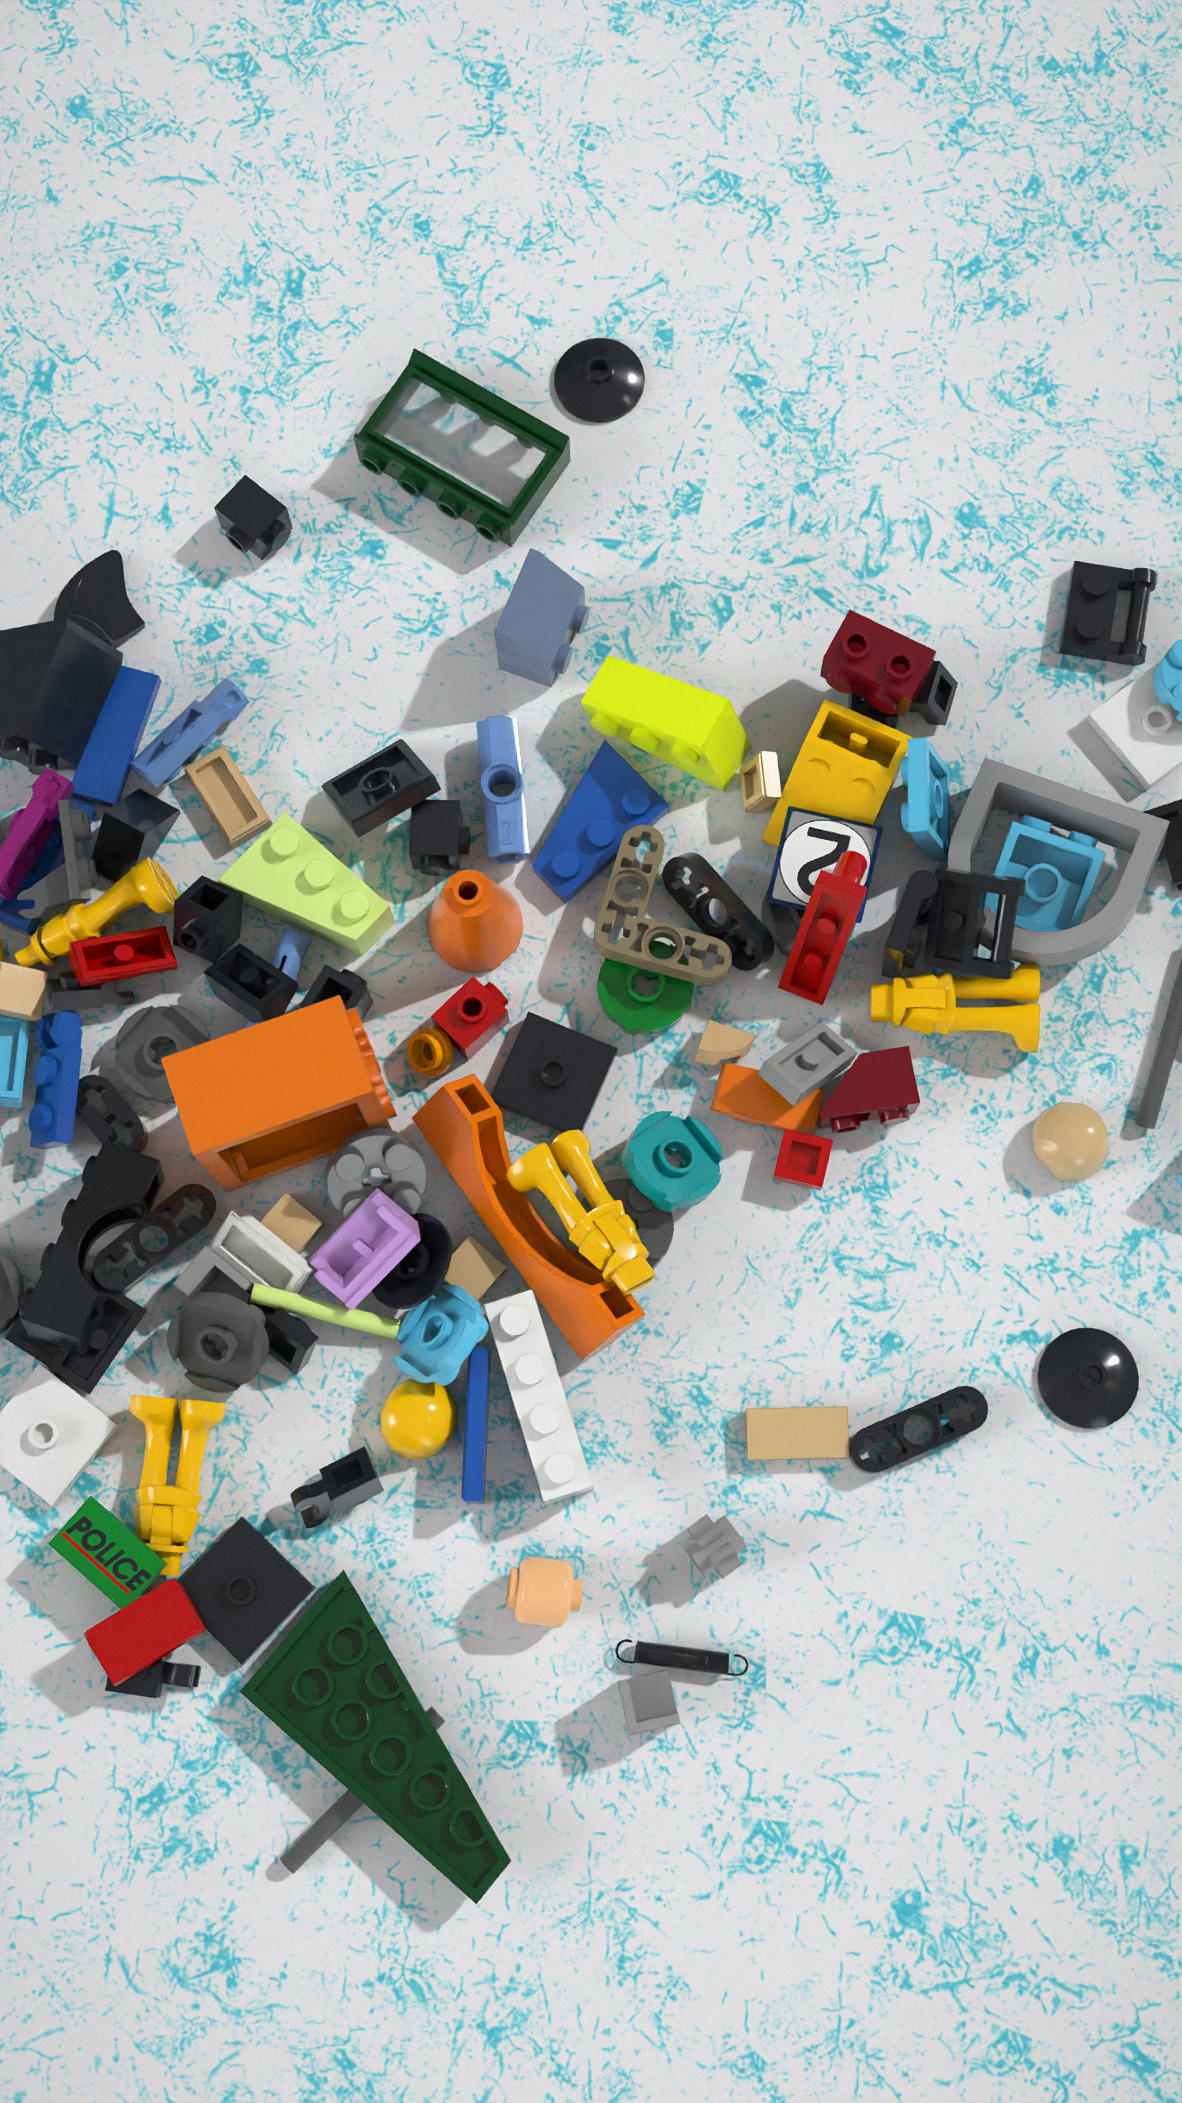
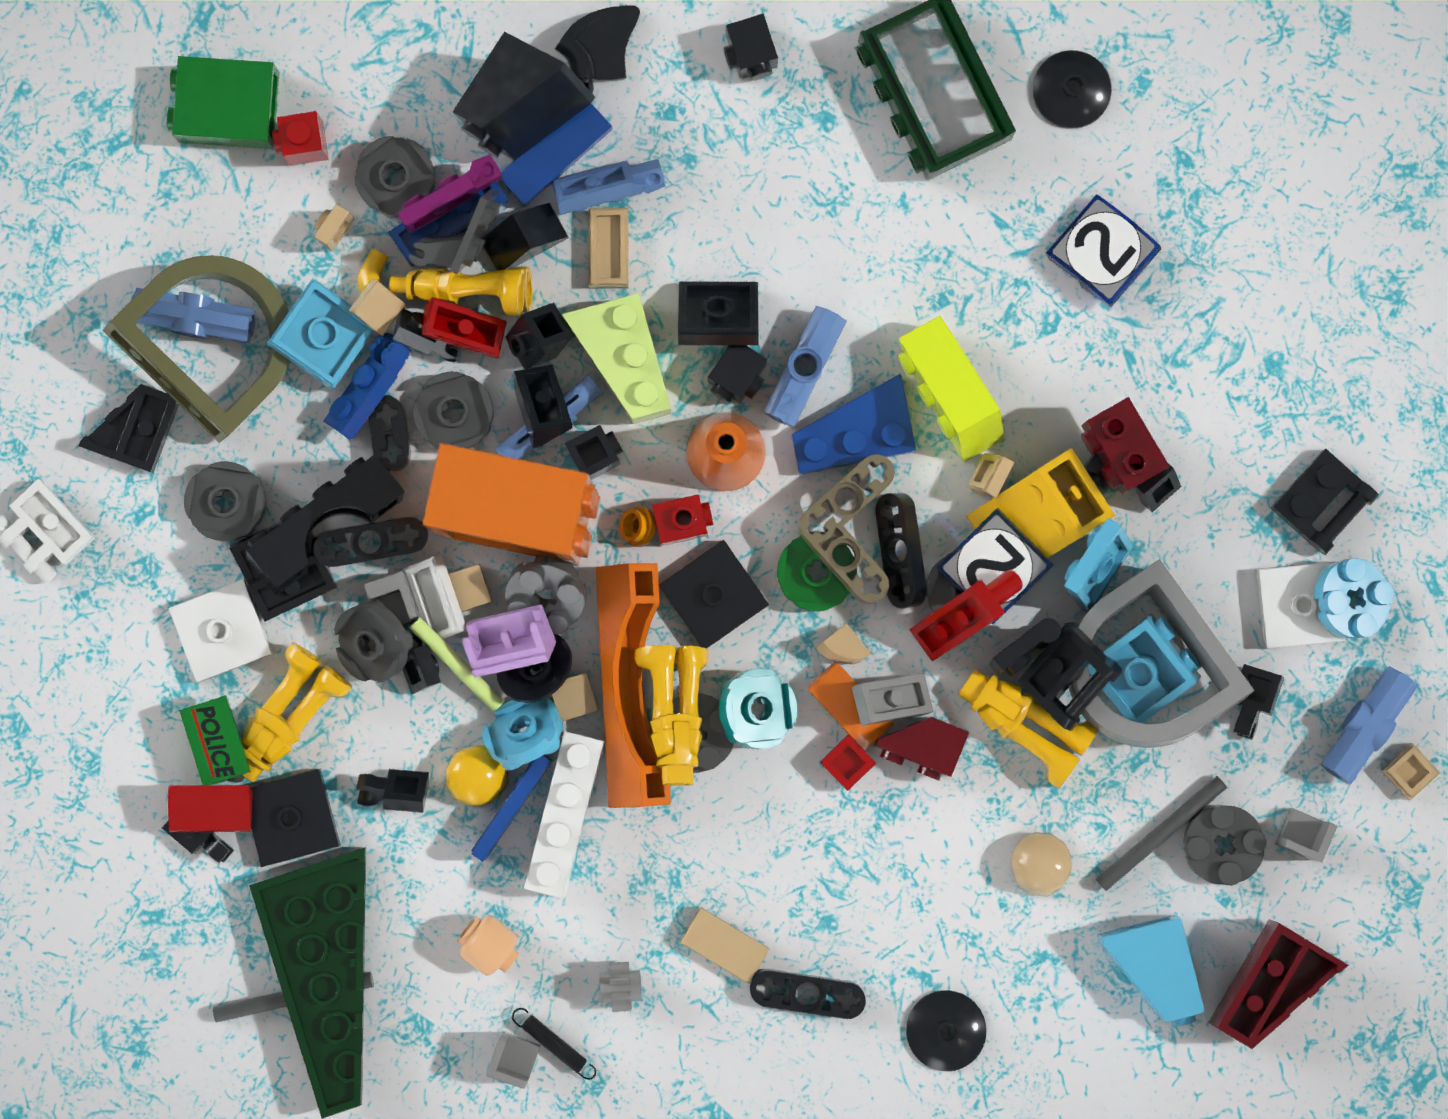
camera: 25 degrees right, 10 degrees up
(540, 621) = (909, 259): sand blue slope -> none
(730, 505) = (1103, 250): none -> slope

